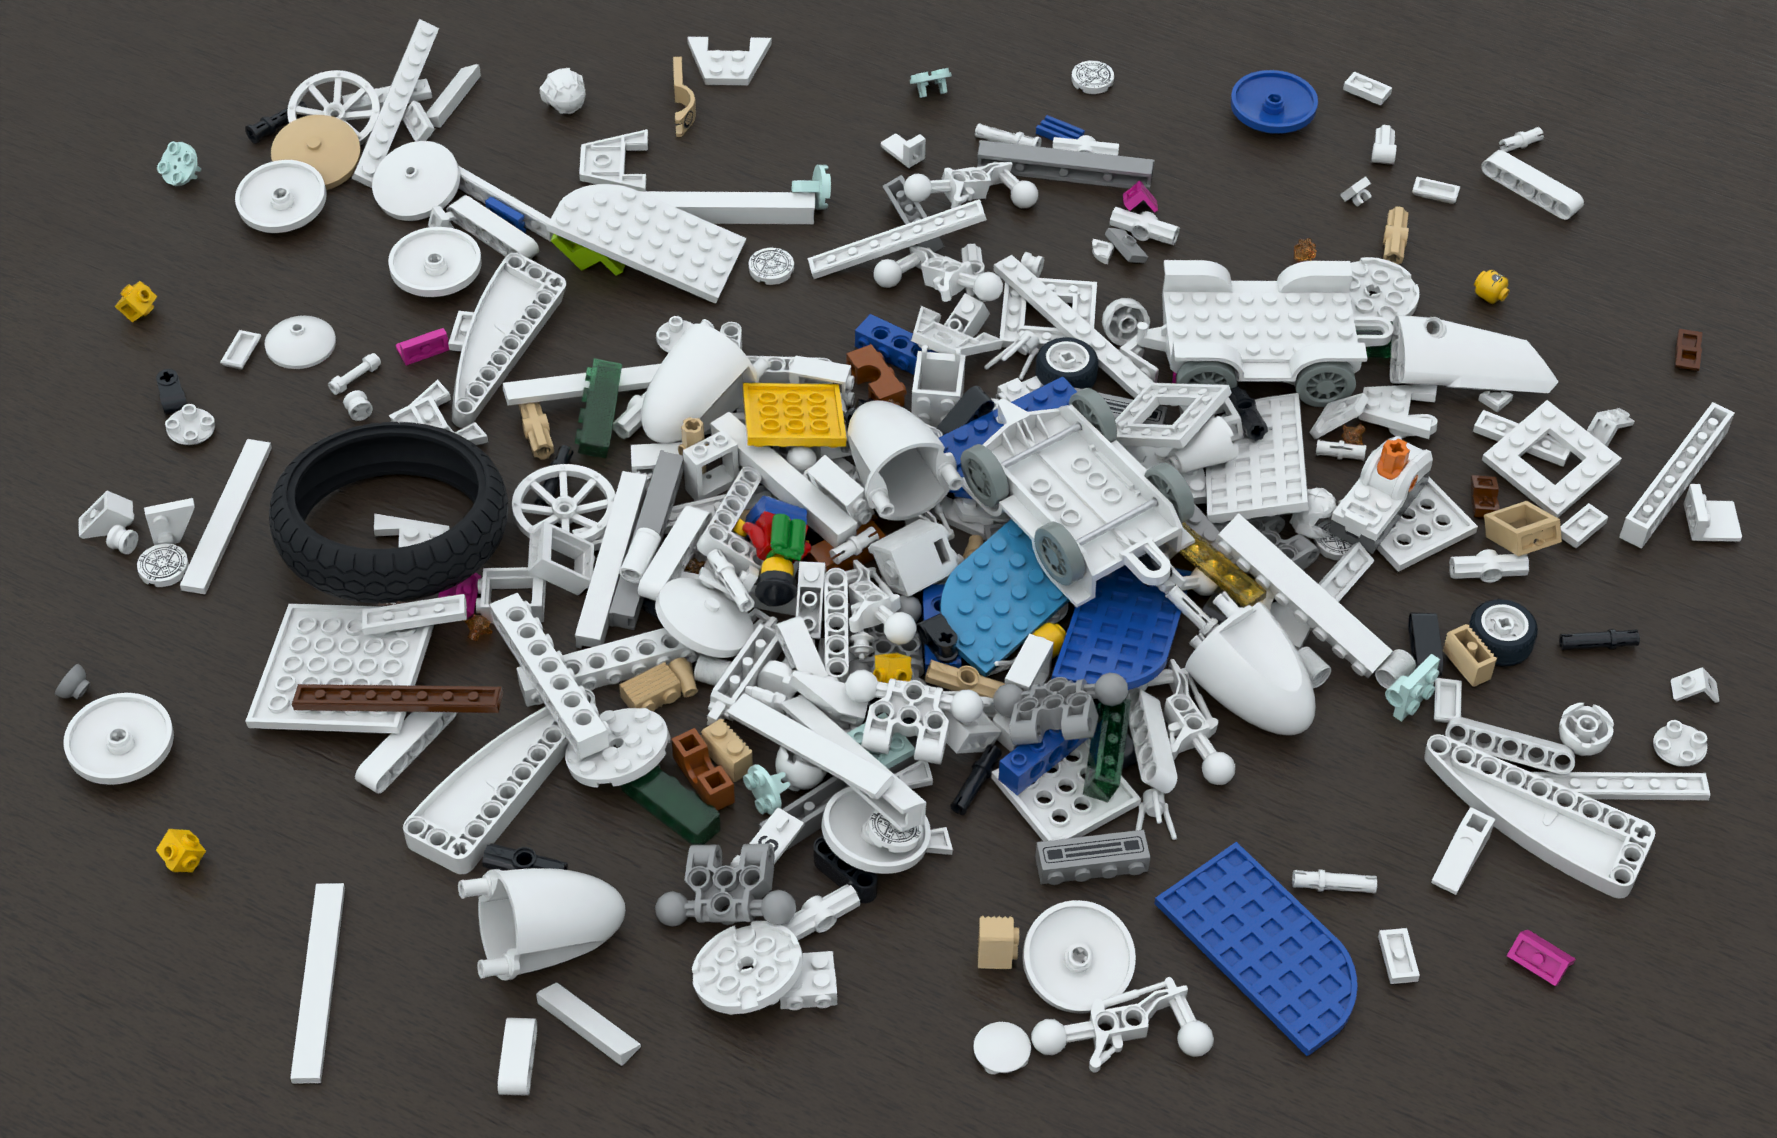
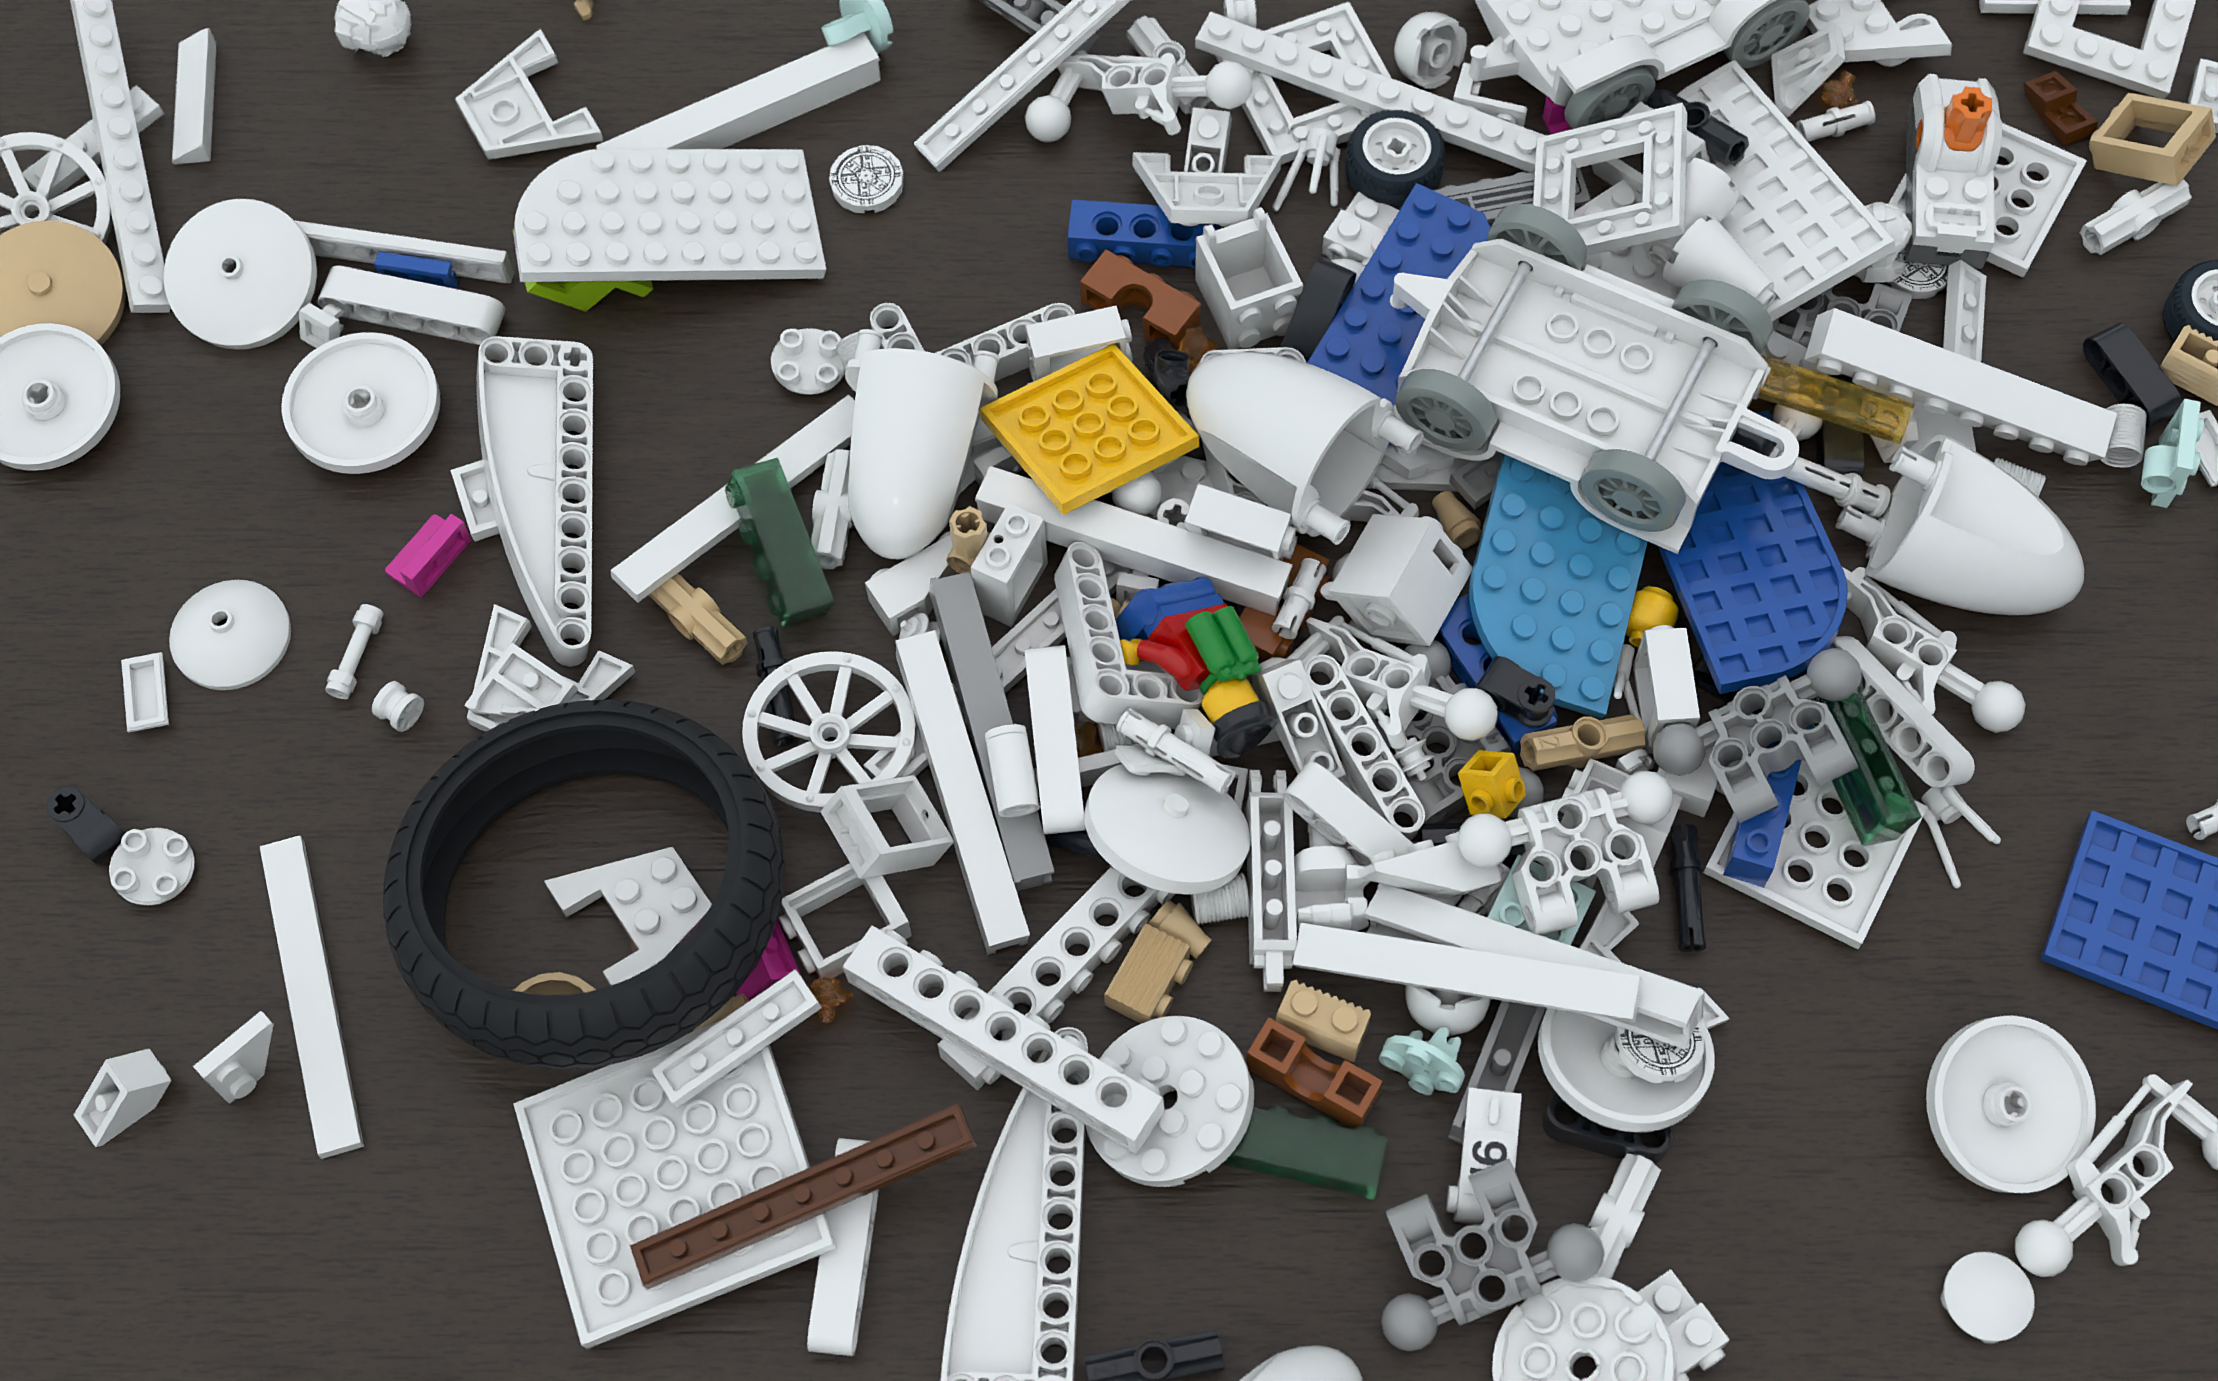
camera: 25 degrees left, 15 degrees up
(122, 539) = (173, 1121): white wheel -> none
(162, 565) = (265, 1131): white tile -> none
(417, 122) = (174, 169): white plate -> none
(997, 942) = (1895, 1143): tan brick -> none
(1092, 857) = (1921, 933): light grey brick -> none
(1201, 474) = (1713, 254): none -> white cone

